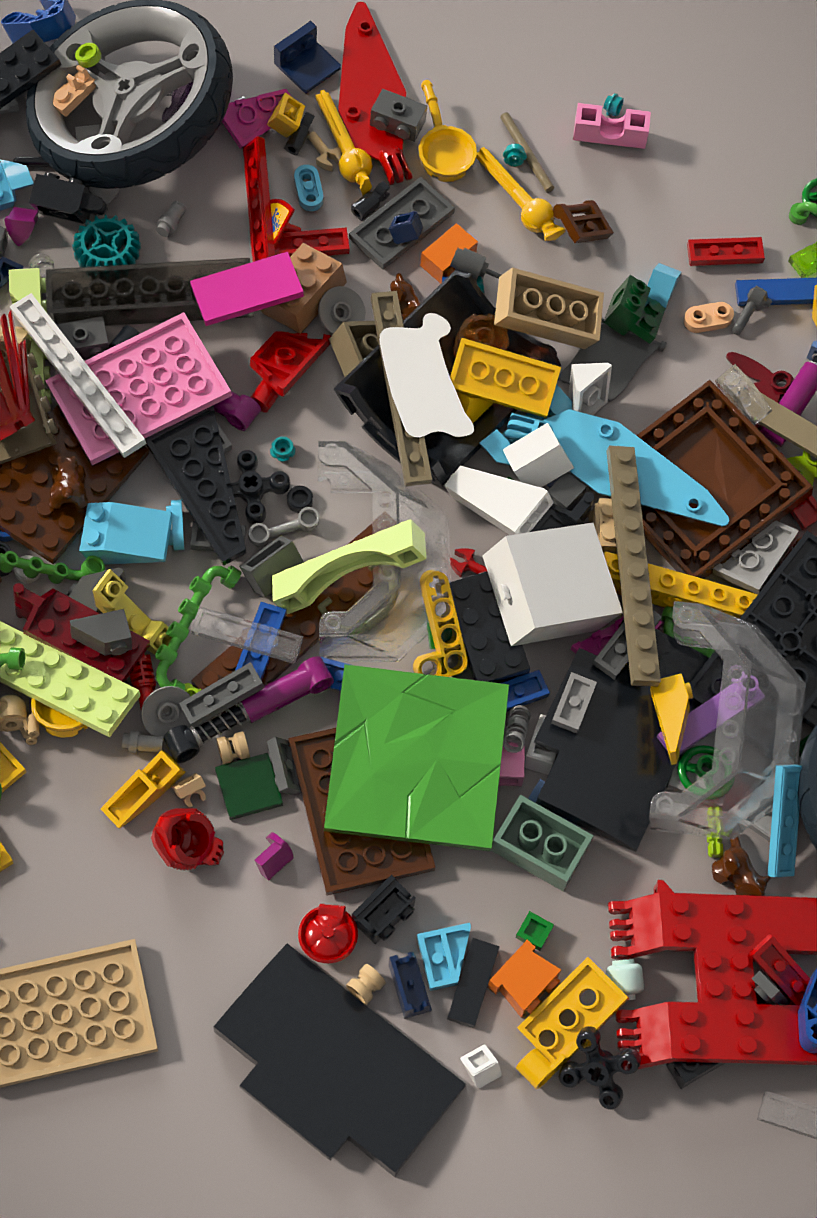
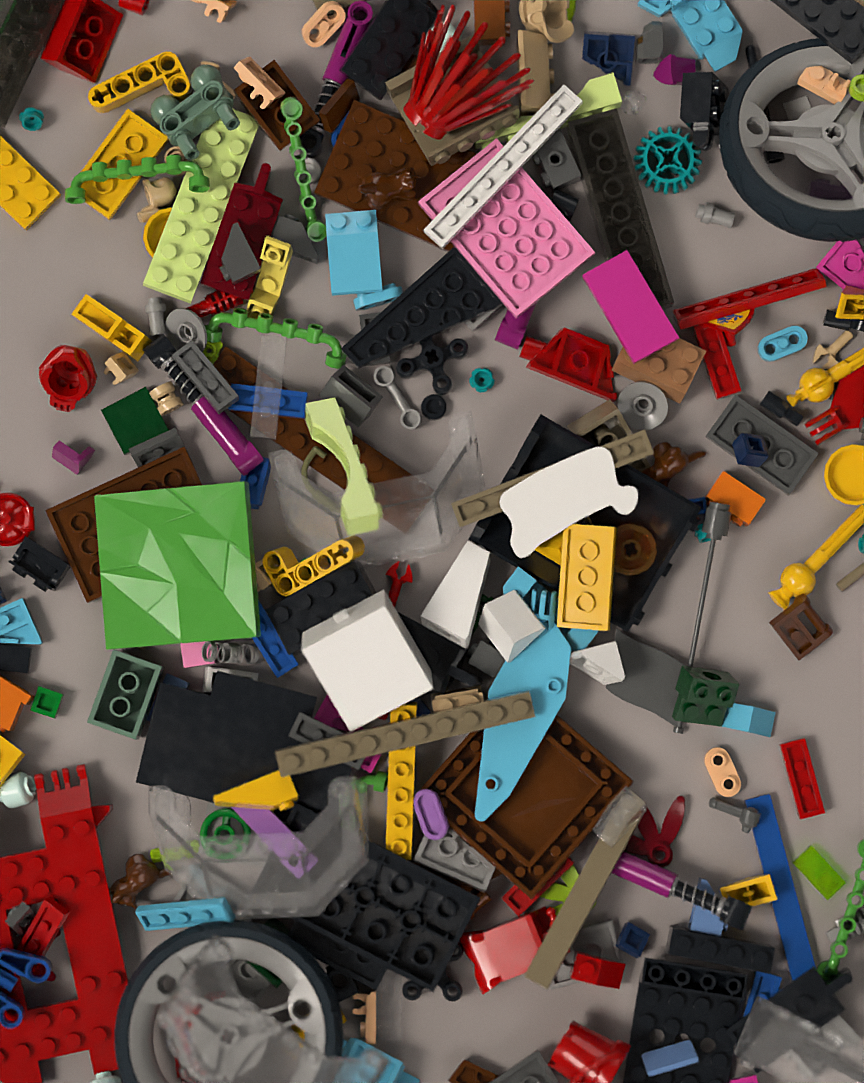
camera: 90 degrees right, 20 degrees up
(549, 308) = (672, 608): tan brick -> none
(574, 702) = (255, 700): light grey plate -> none
(715, 565) = (430, 814): none -> medium lavender tile

